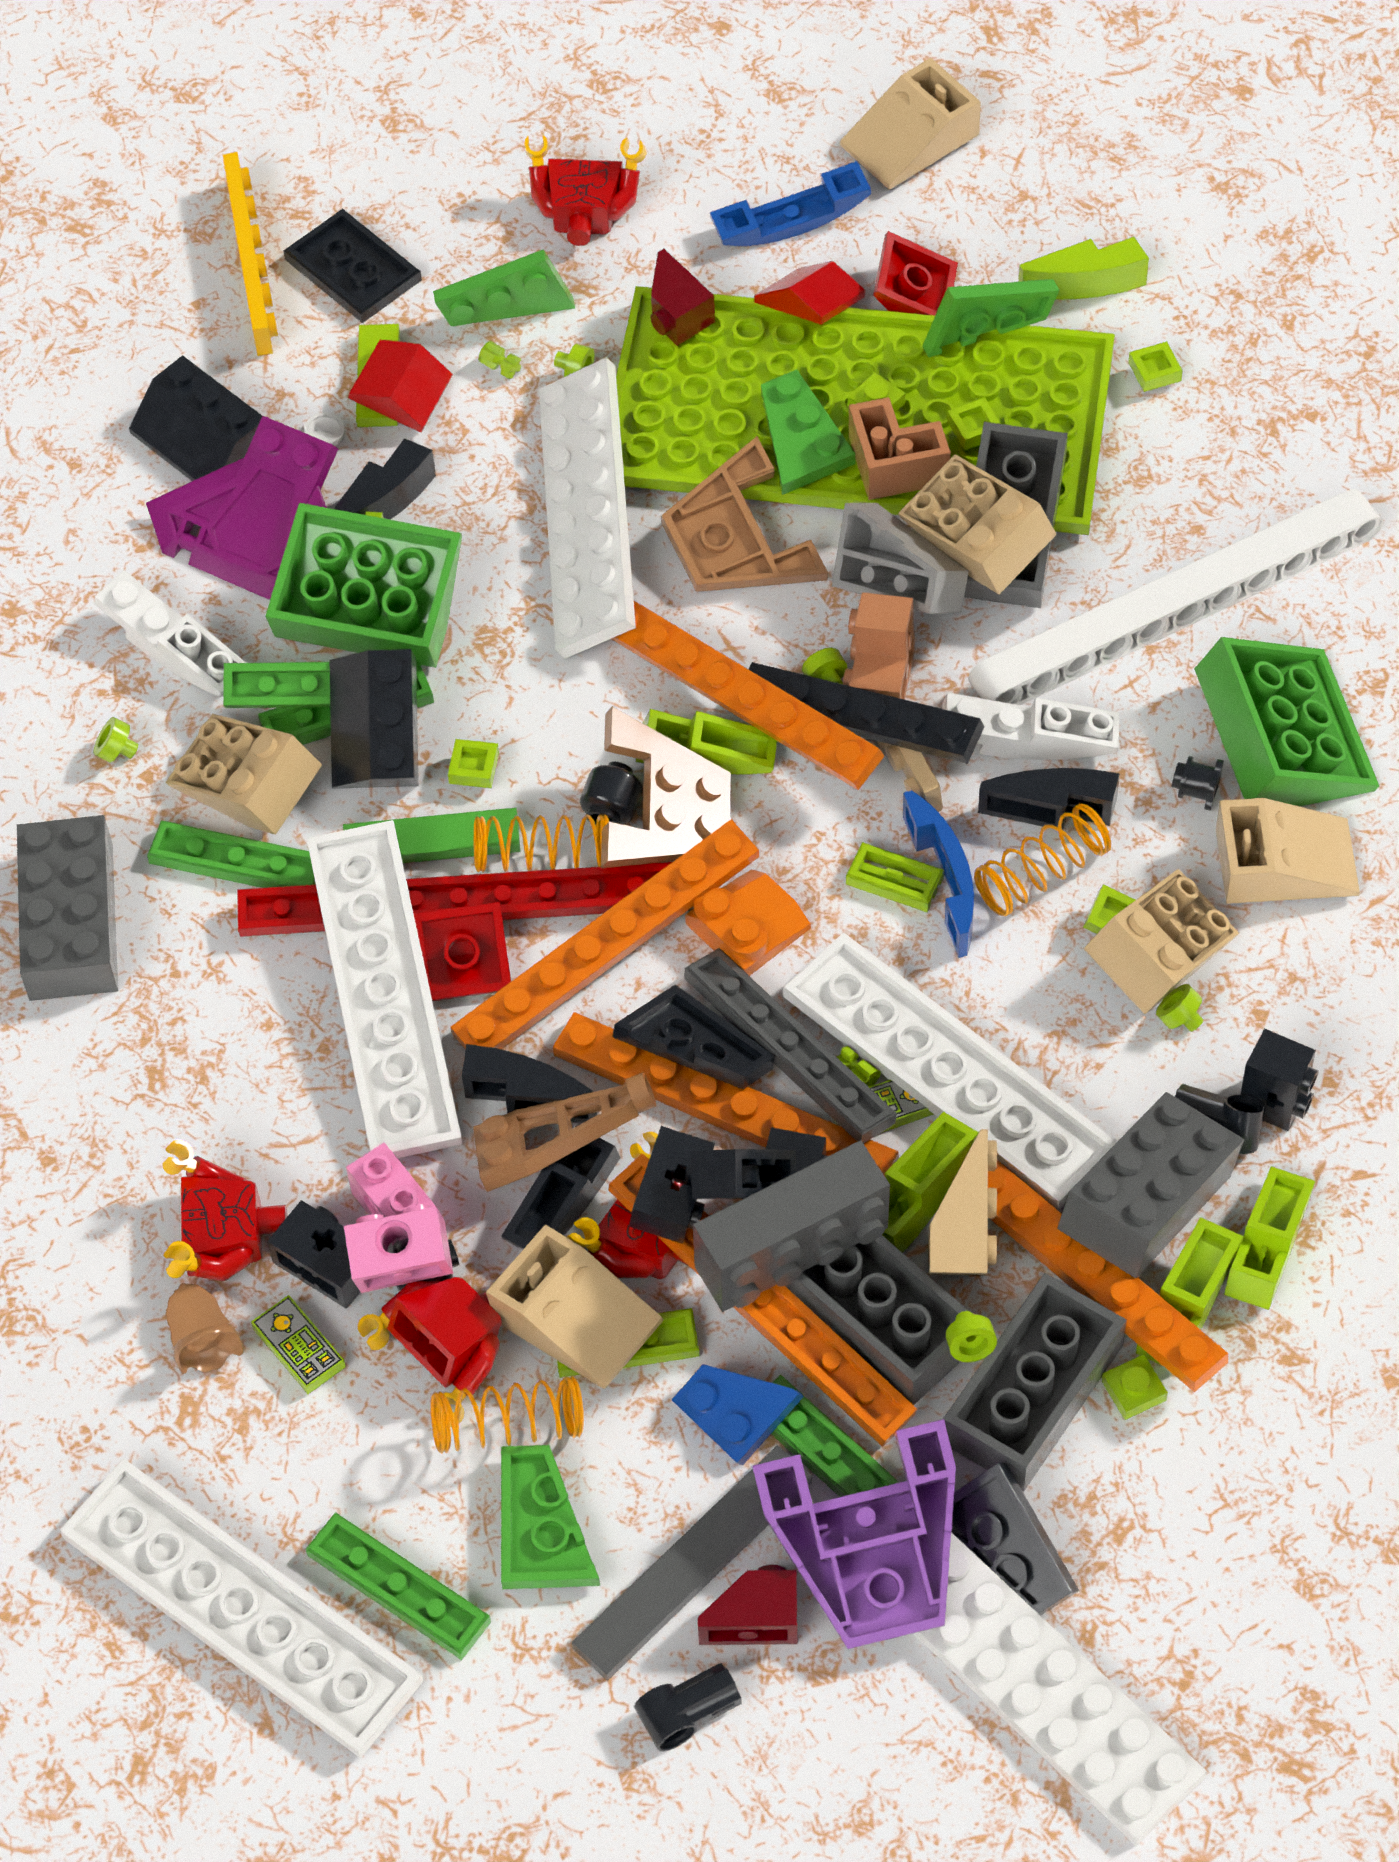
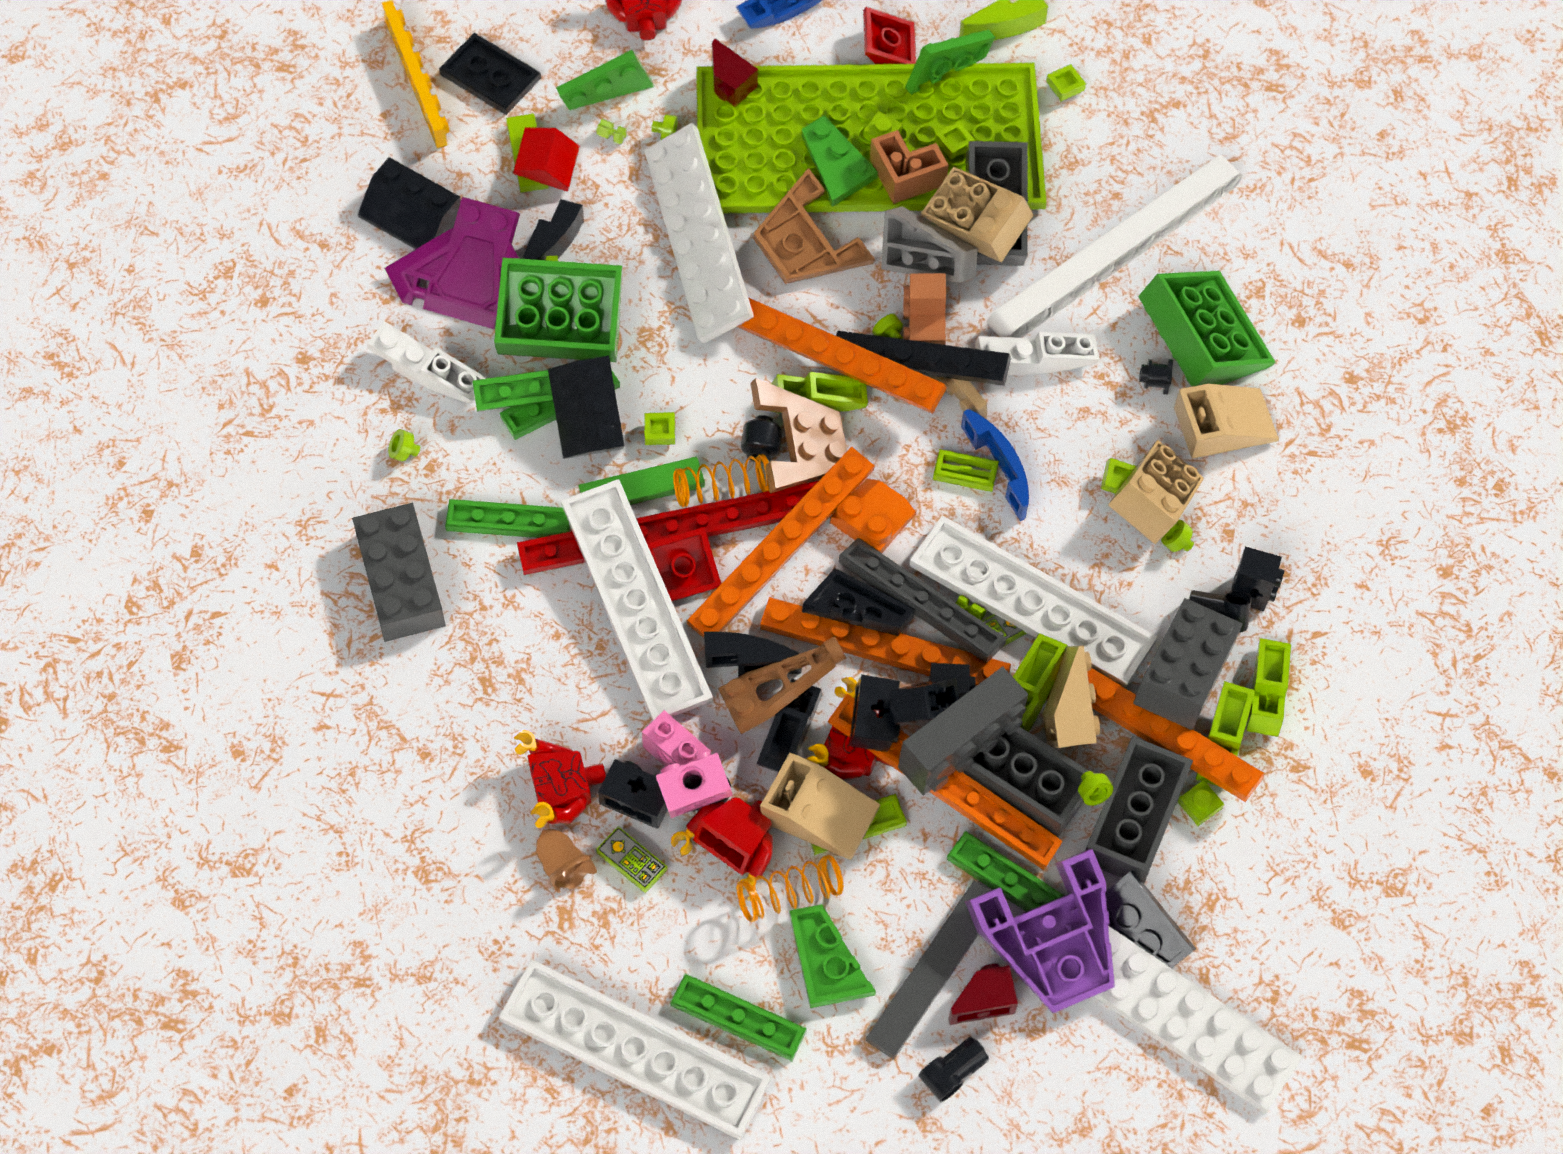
camera: 15 degrees left, 5 degrees up
(245, 772) = (501, 456): tan slope -> none
(326, 428) = (498, 196): white piece -> none
(735, 1408) = (940, 859): blue wing -> none
(813, 292) = (821, 57): red slope -> none
(982, 884) = (1039, 462): light orange piece -> none
(1045, 794) = (1060, 399): black slope -> none

